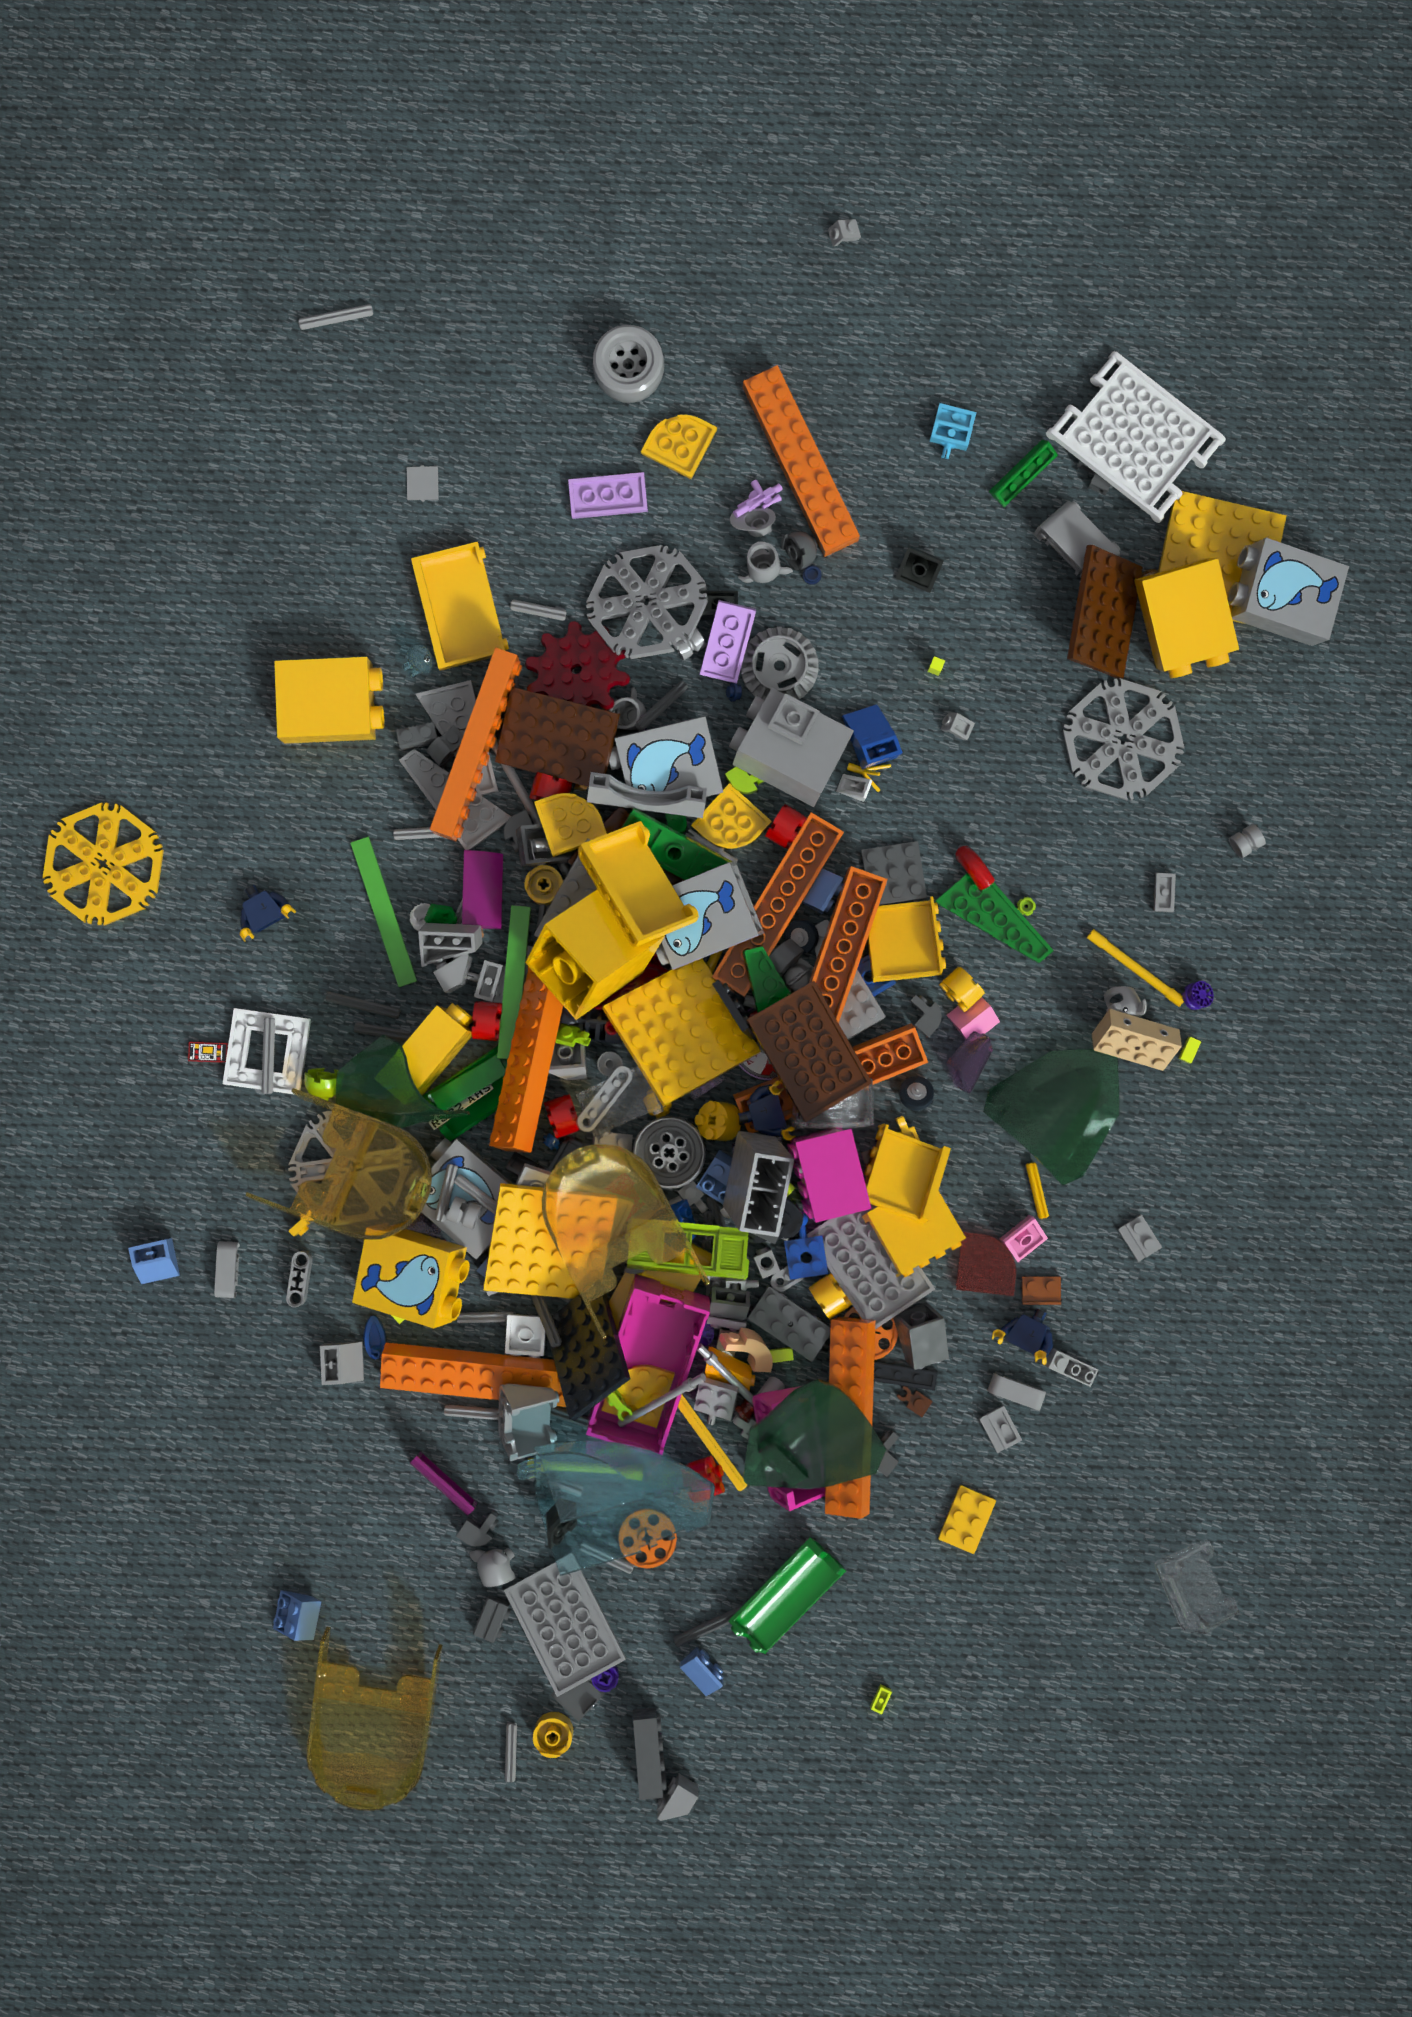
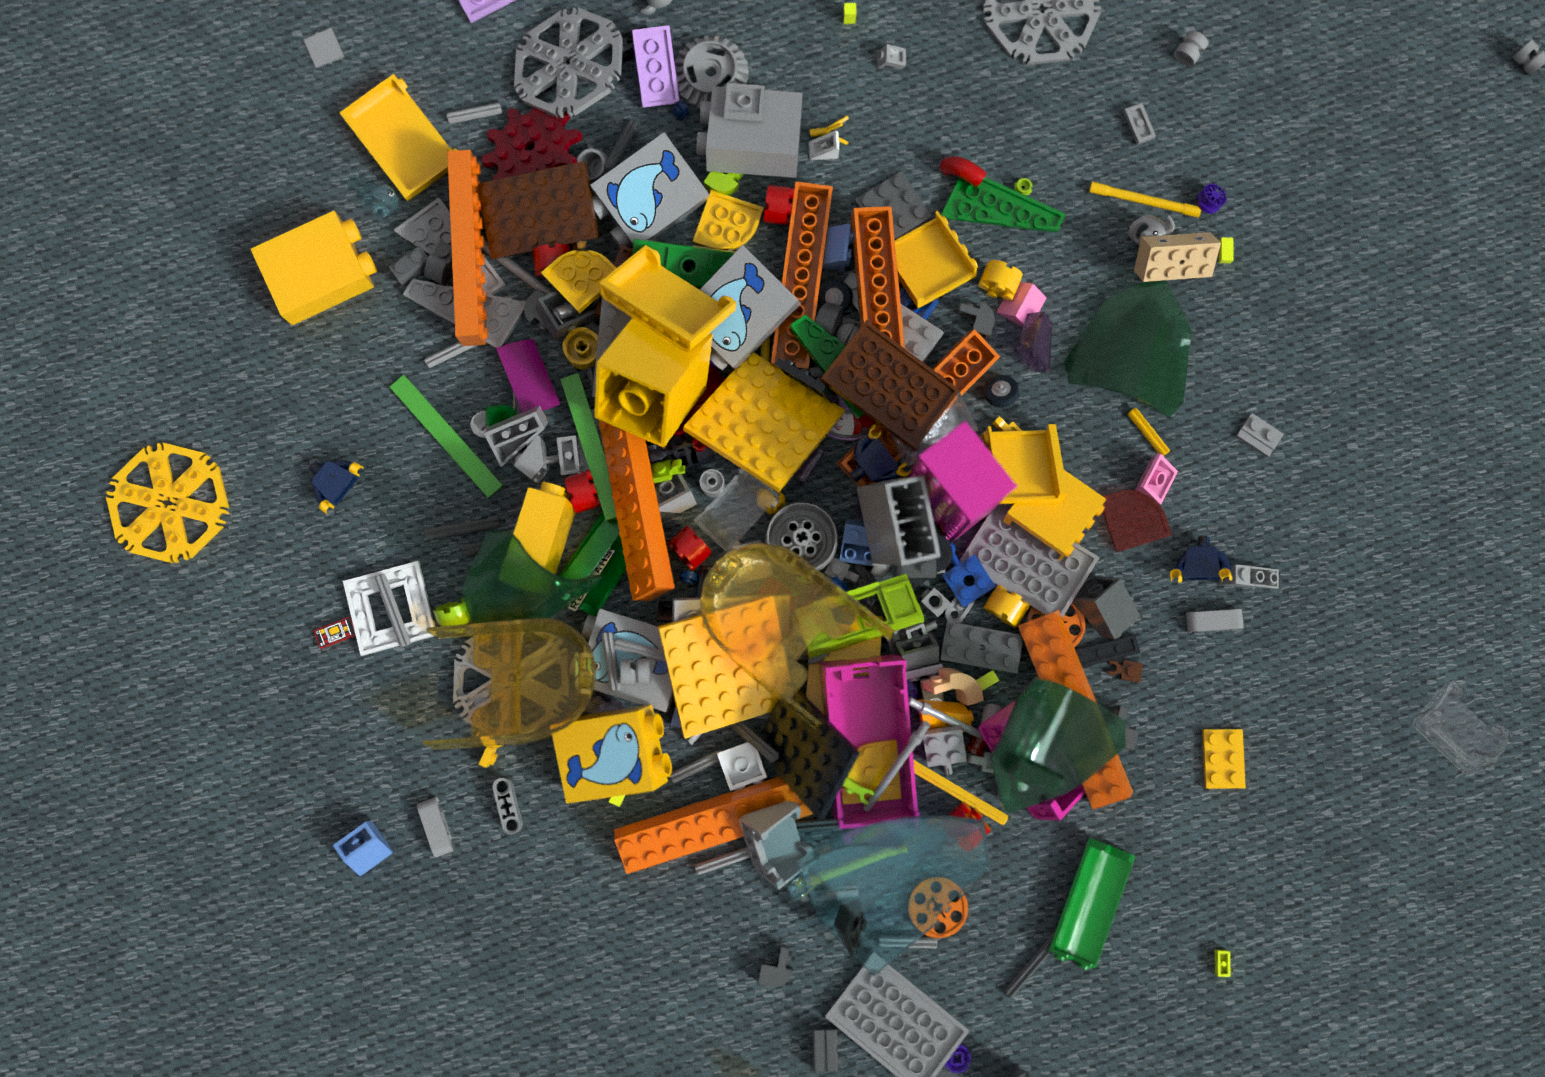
camera: 25 degrees left, 5 degrees down
(341, 1362) = (580, 867): light grey slope -> none
(374, 1337) = (601, 830): blue arm -> none
(443, 1483) = (725, 939): magenta slope -> none
(494, 1566) = (806, 997): light grey piece -> none
(604, 1099) = (720, 513): light grey plate -> none
(677, 822) = (679, 239): green plate -> none
(683, 801) = (678, 214): light grey arch -> none
(695, 643) = (622, 87): light grey wheel -> none
(702, 1671) = (1045, 1011): medium blue slope -> none
(718, 1121) = (833, 491): yellow brick -> none
(872, 736) = (822, 97): blue slope -> none
(1000, 1429) = (1215, 661): light grey plate -> none
(1041, 1290) = (1193, 520): dark orange plate -> none

